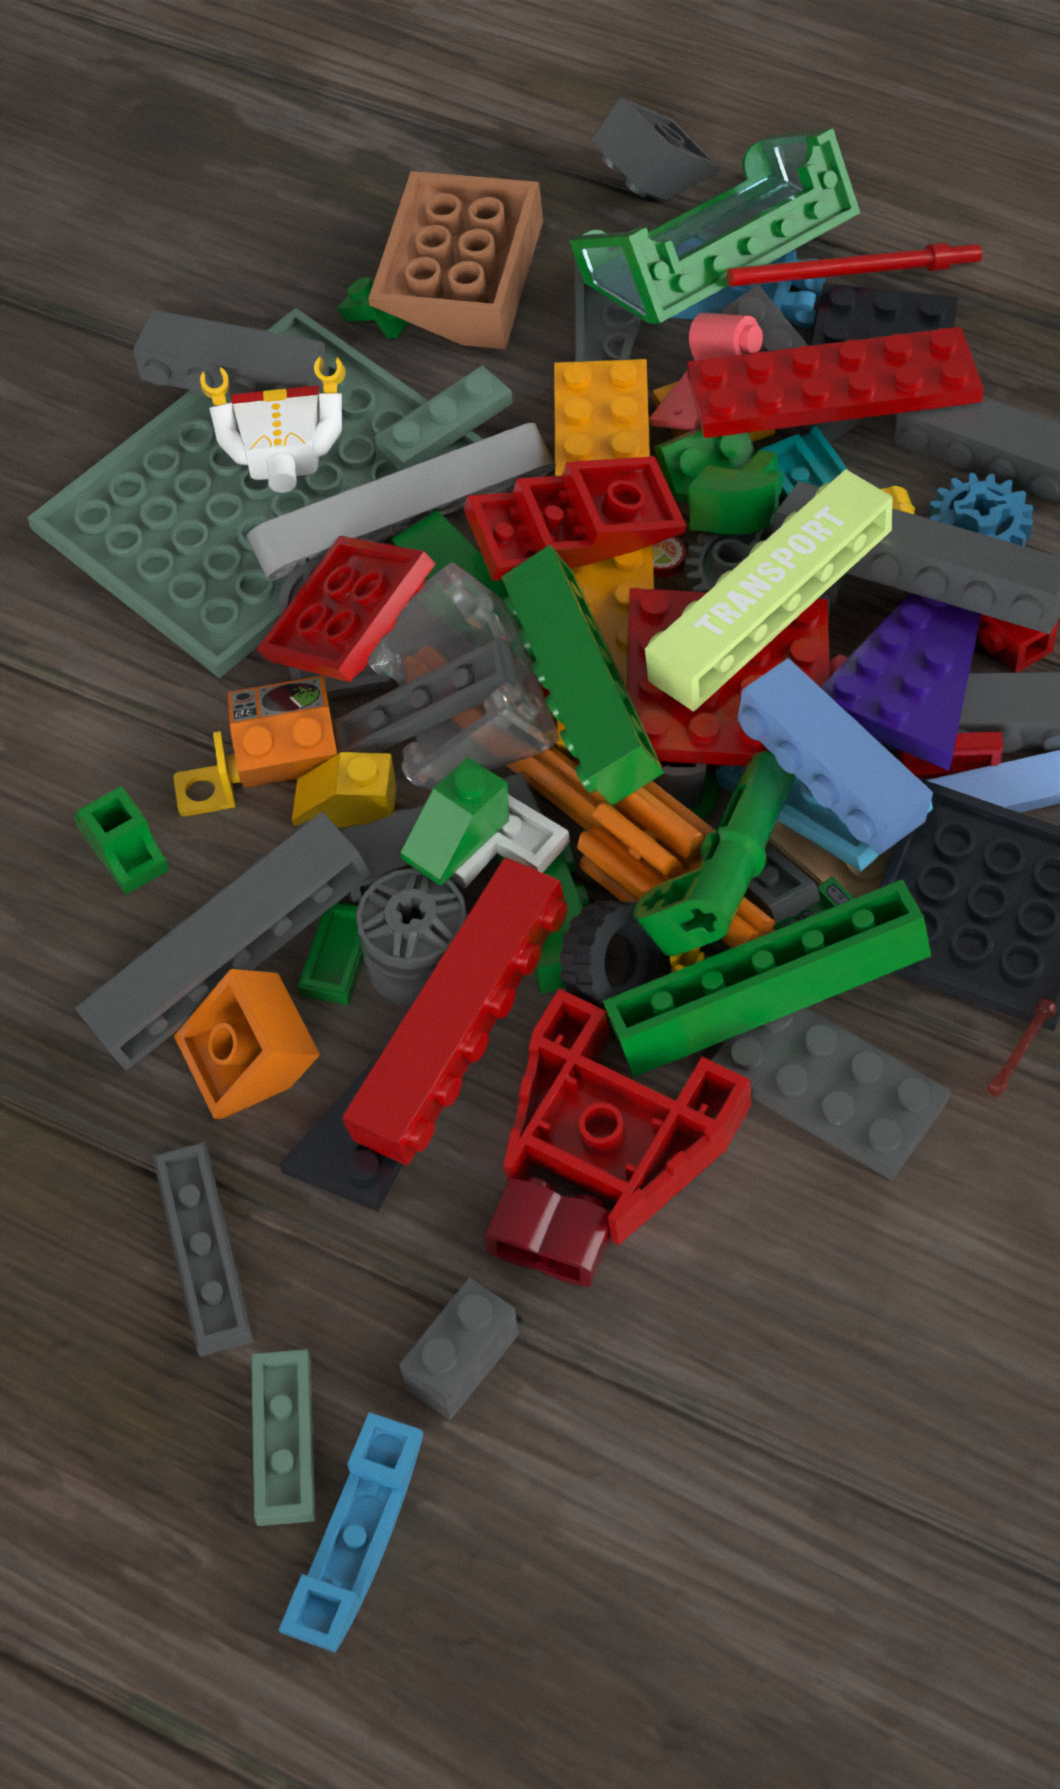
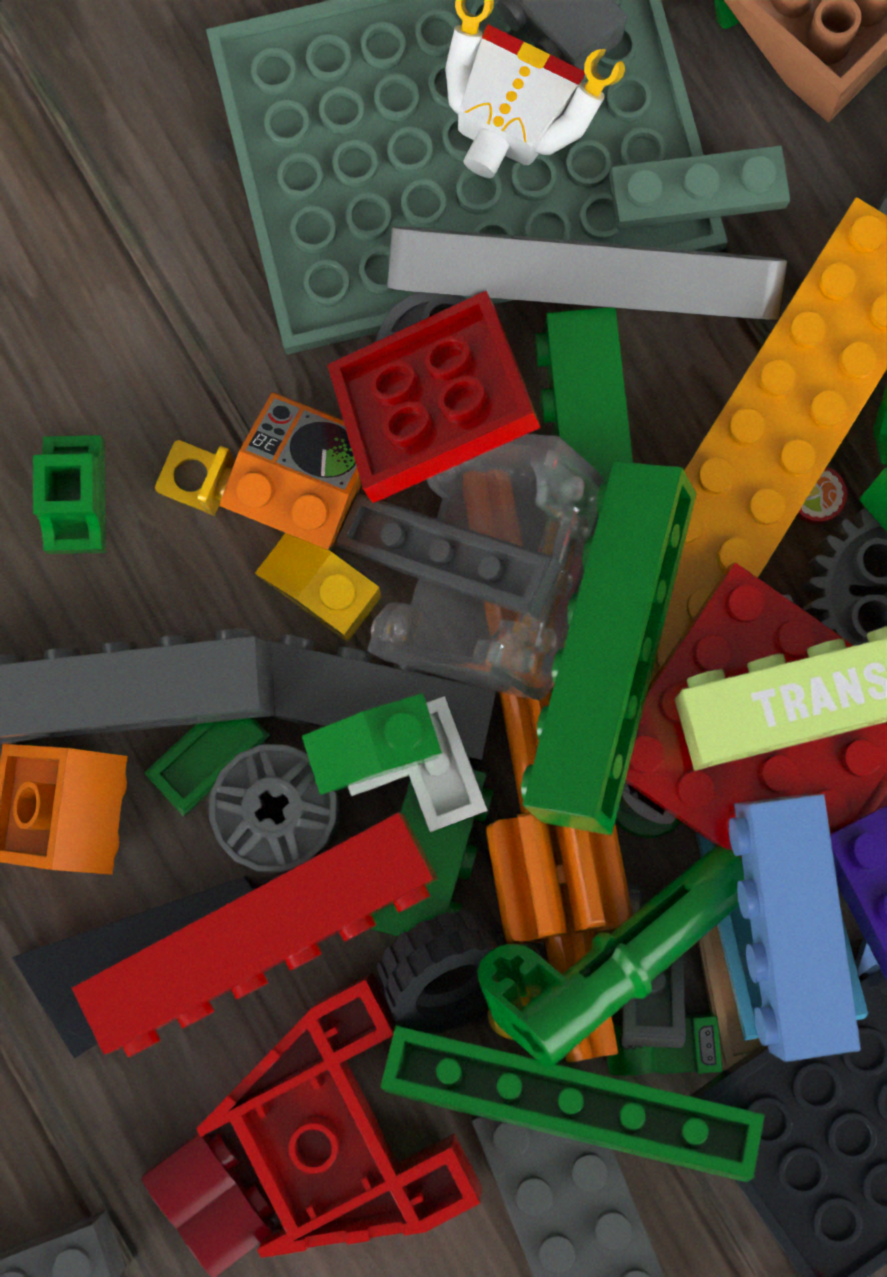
camera: 25 degrees right, 25 degrees up
(585, 514) = (740, 430): red slope -> none

